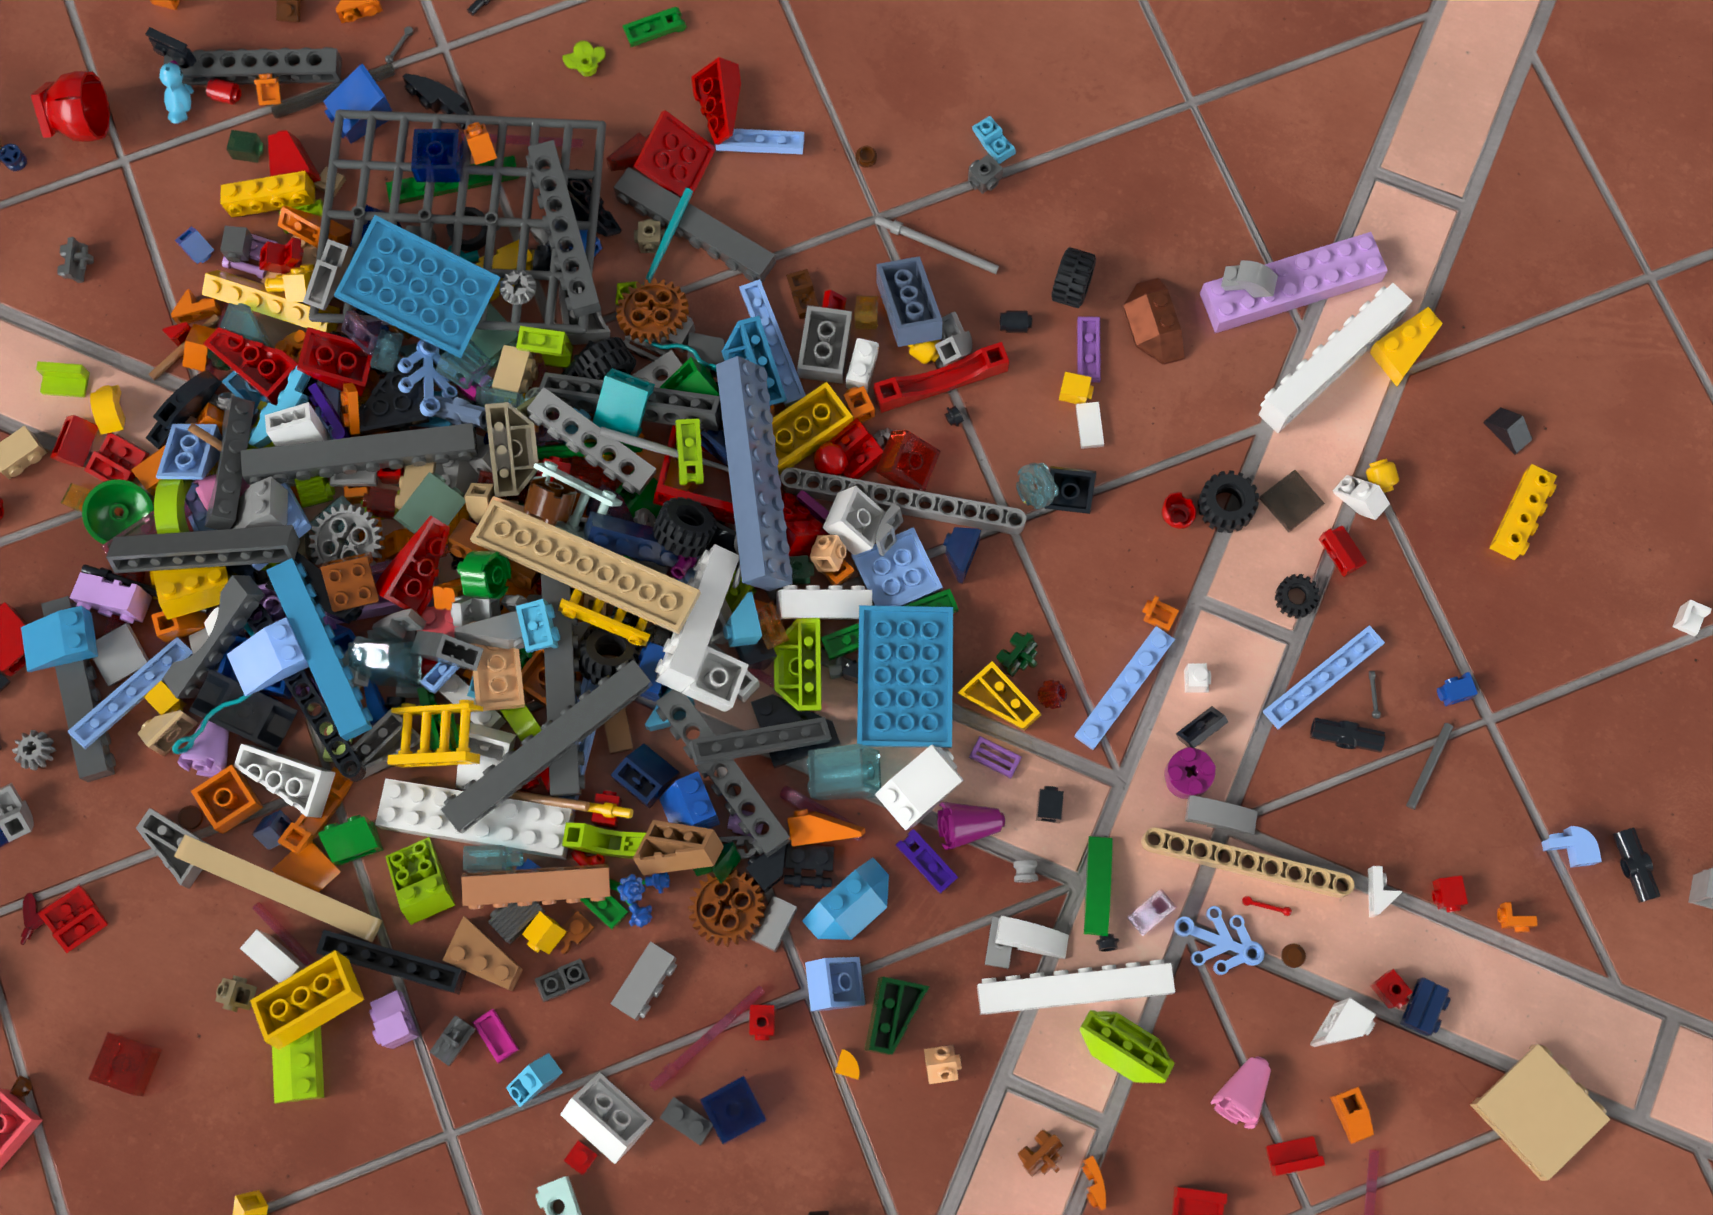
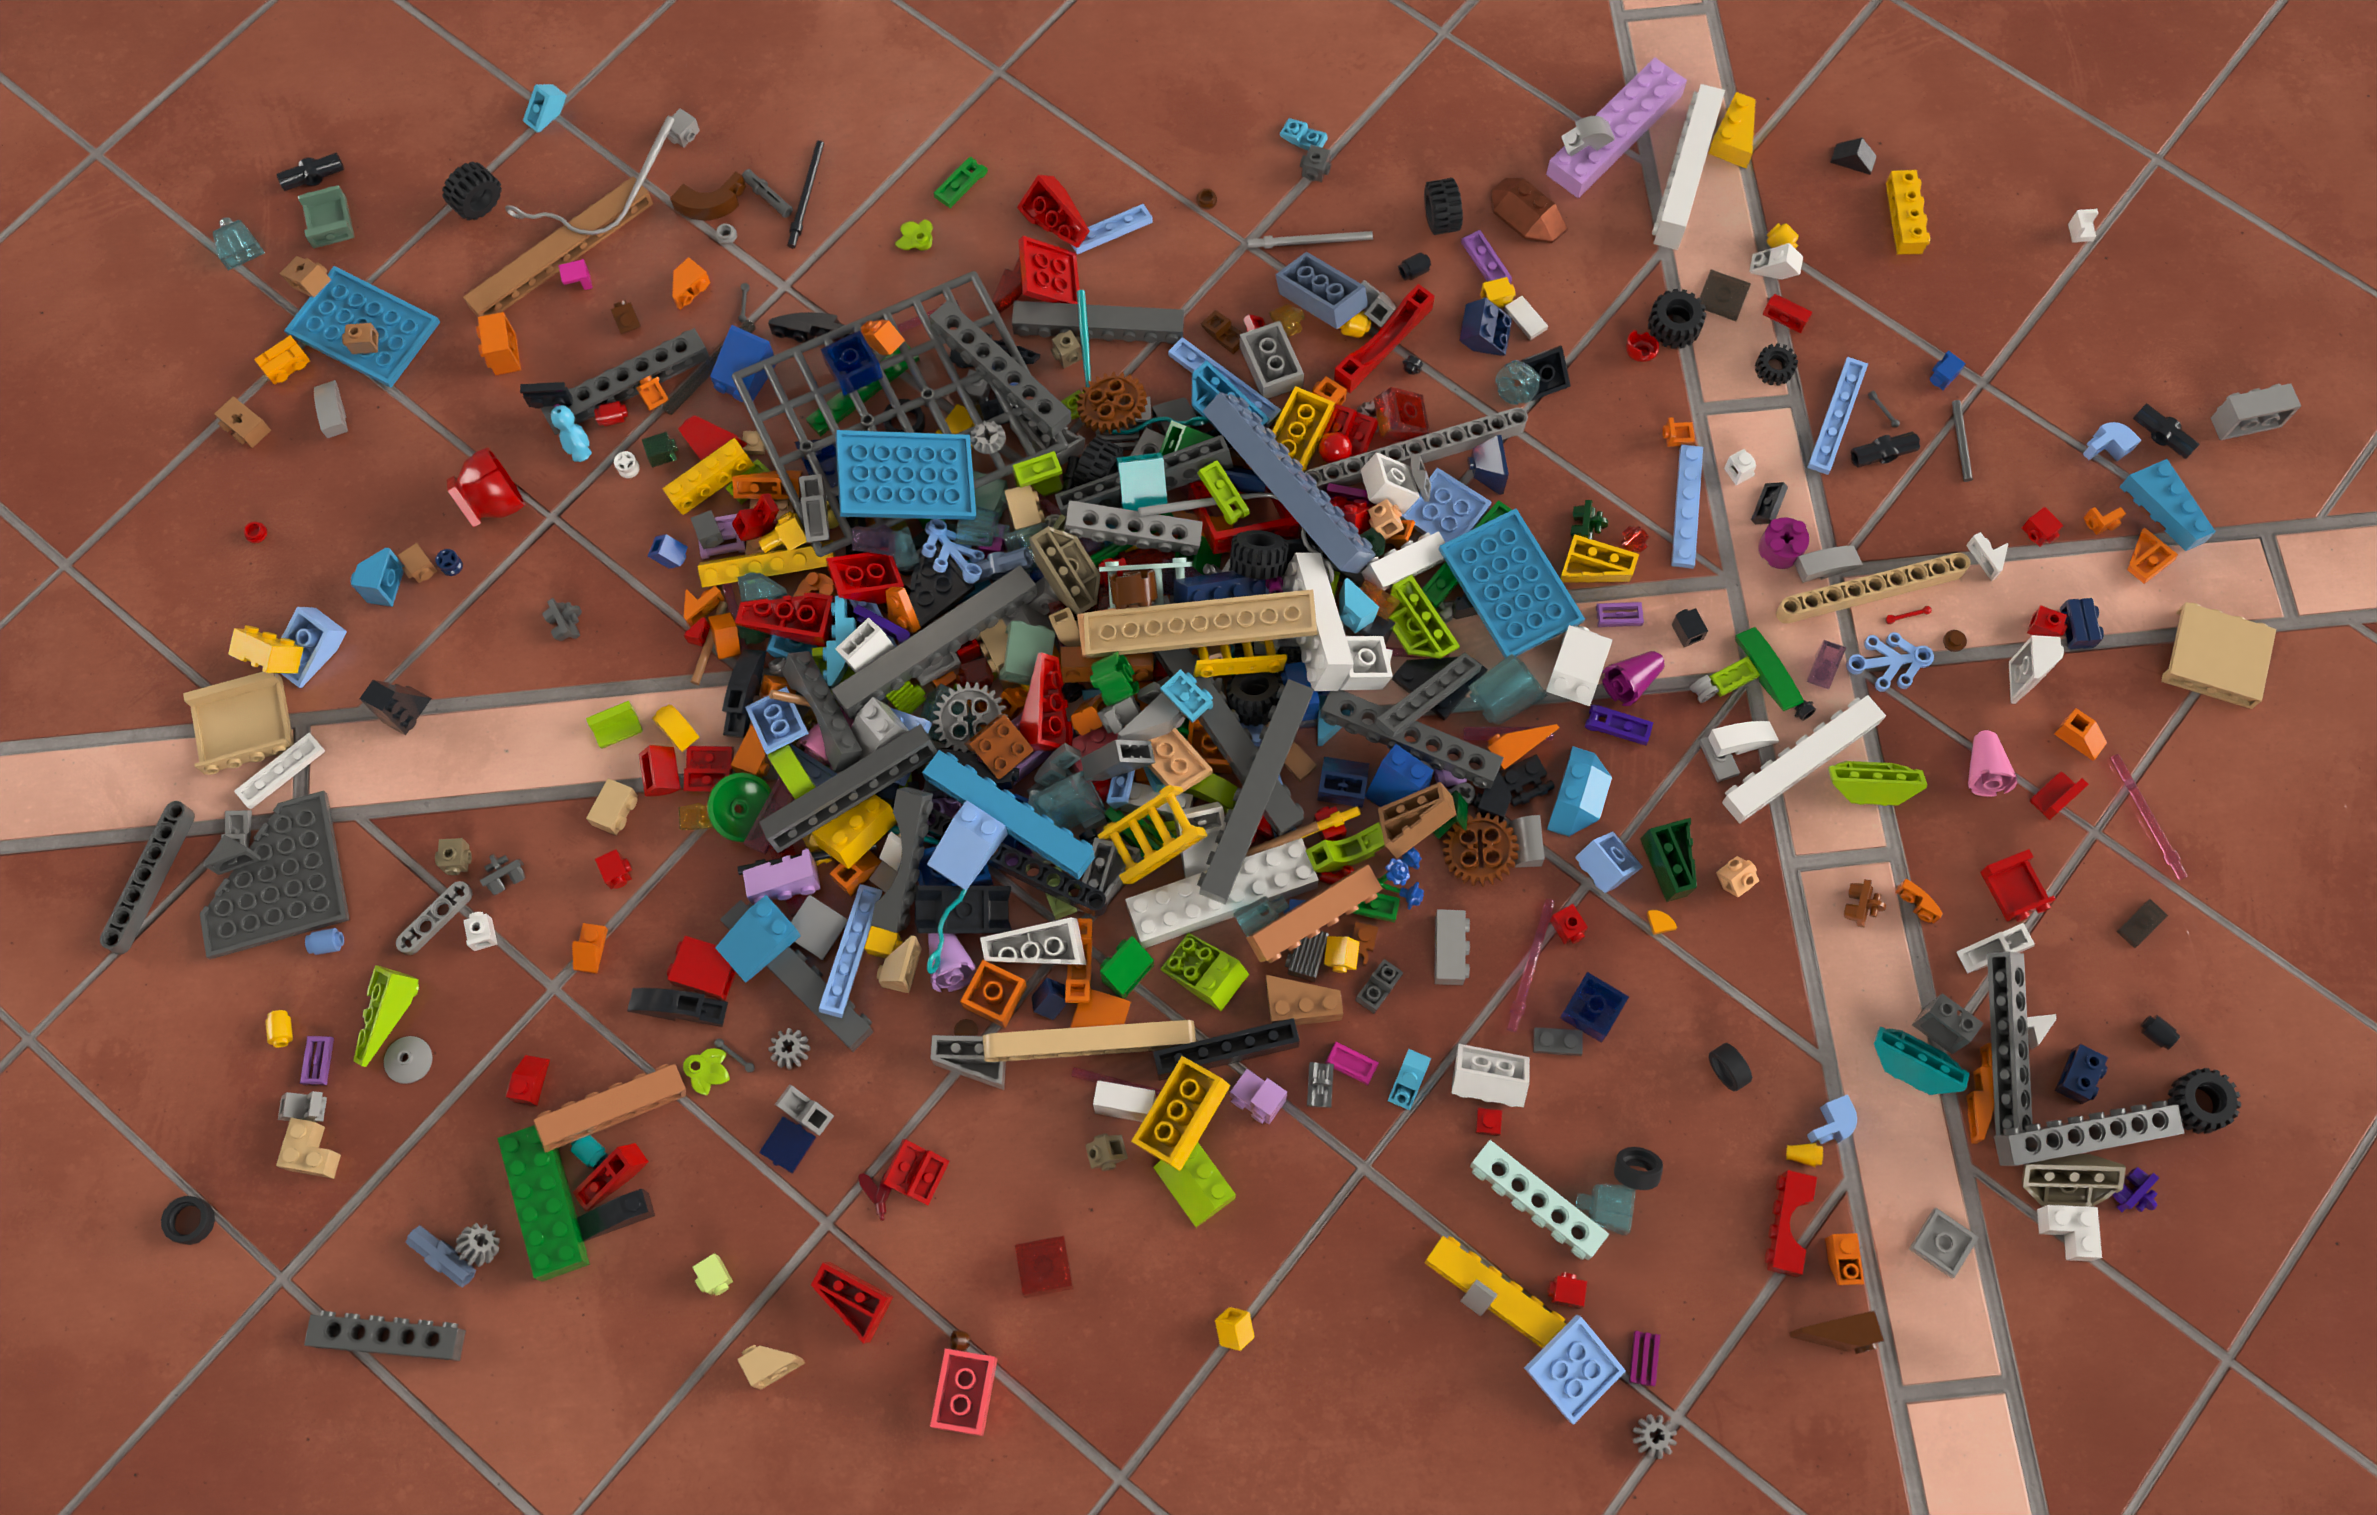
camera: 30 degrees left, 5 degrees down
(207, 140) = (622, 461): none -> white wheel
(862, 364) = (1311, 360): white brick -> none
(1043, 416) = (1485, 327): none -> dark blue slope
(1061, 874) = (1734, 676): none -> lime plate
(1537, 979) = (2150, 556): none -> orange wing
(1590, 938) = (2169, 503): none -> dark azure wedge

